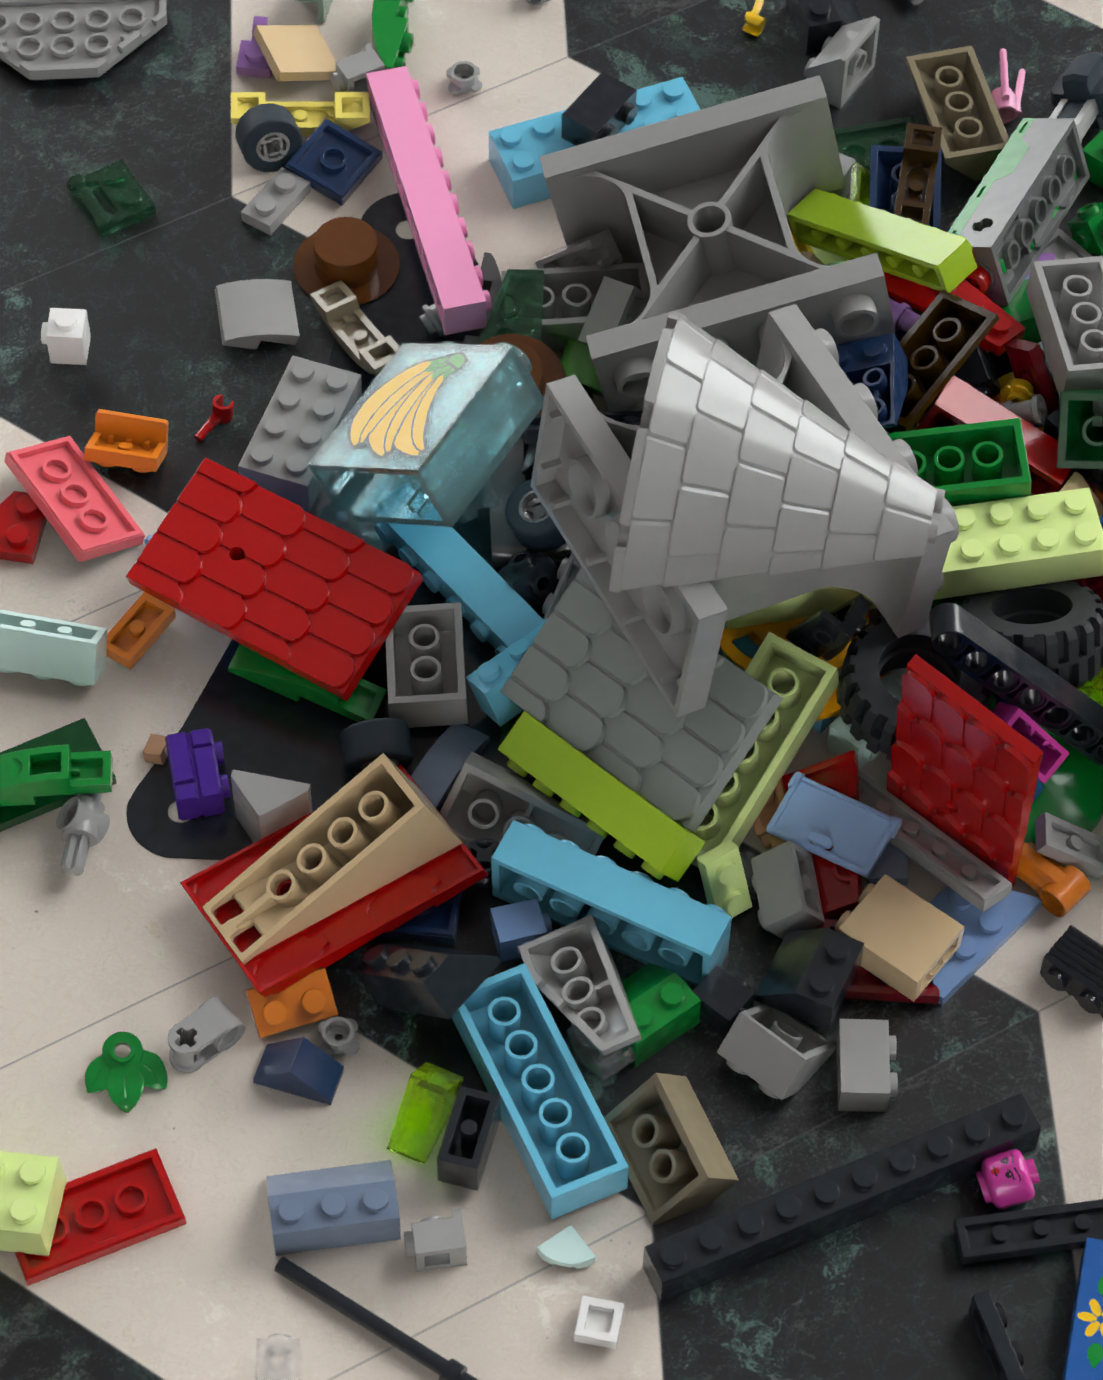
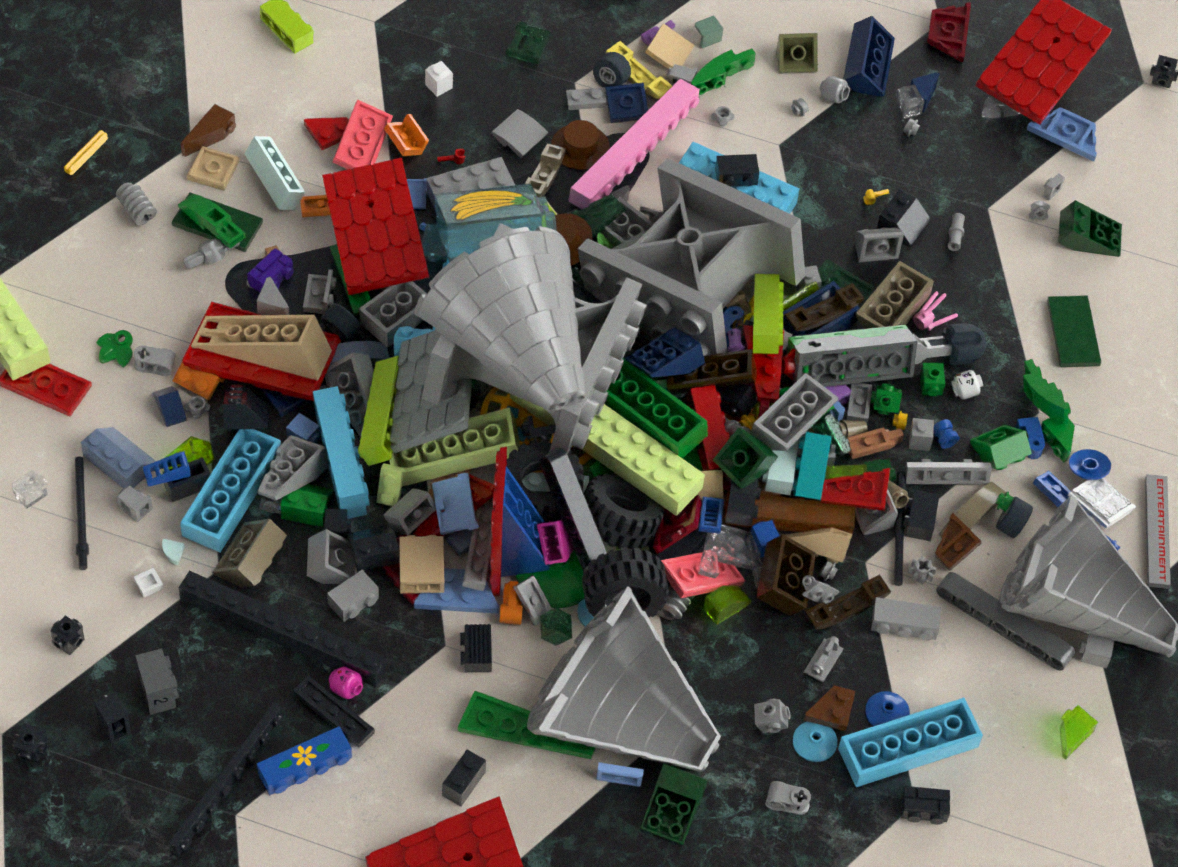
camera: 45 degrees right, 0 degrees up
(294, 737) = (318, 293): none -> light grey bracket
(454, 1121) = (170, 461): none -> blue slope

